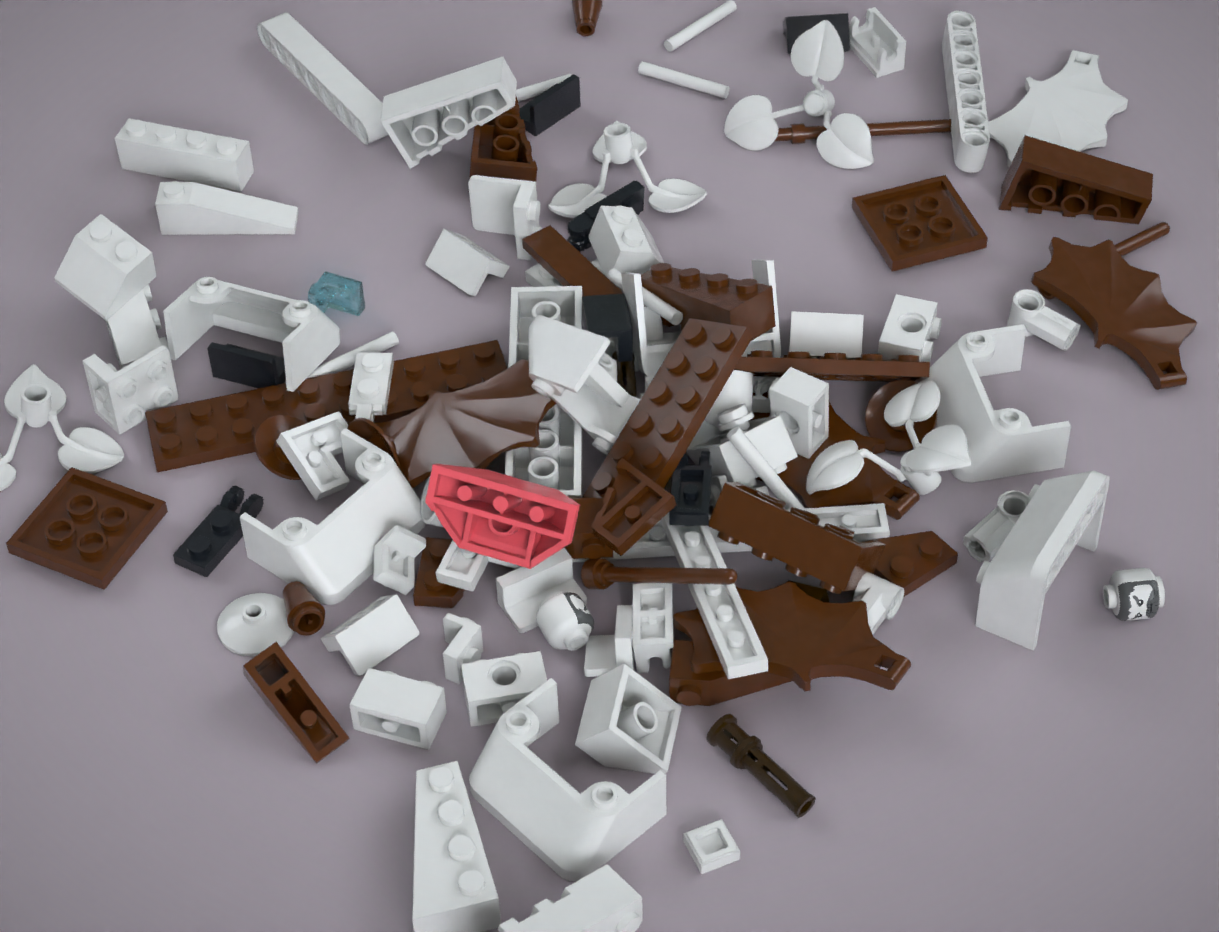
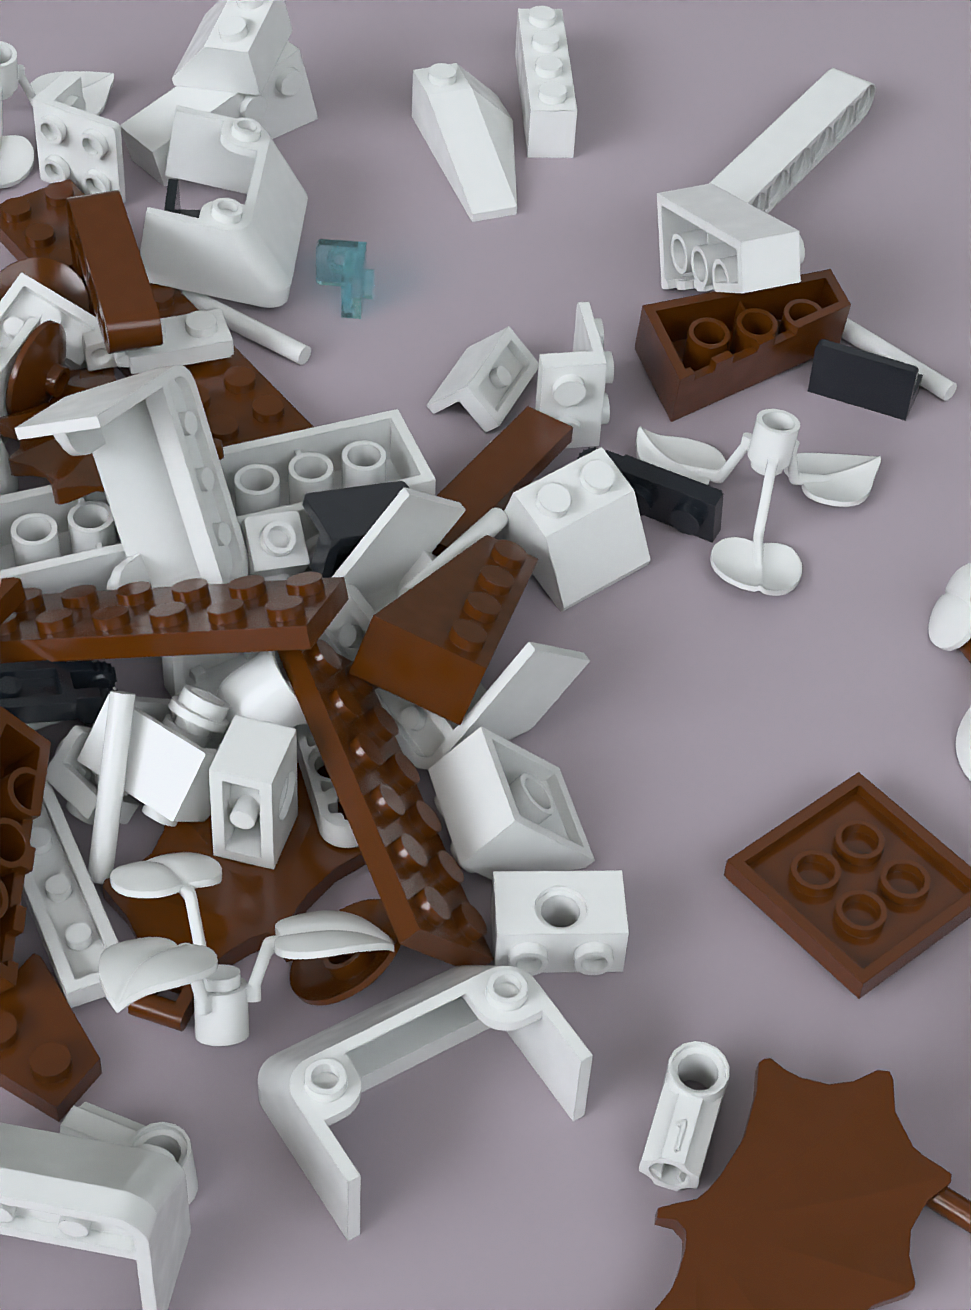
camera: 65 degrees right, 0 degrees up
(320, 379) = (111, 264): none -> reddish brown beam

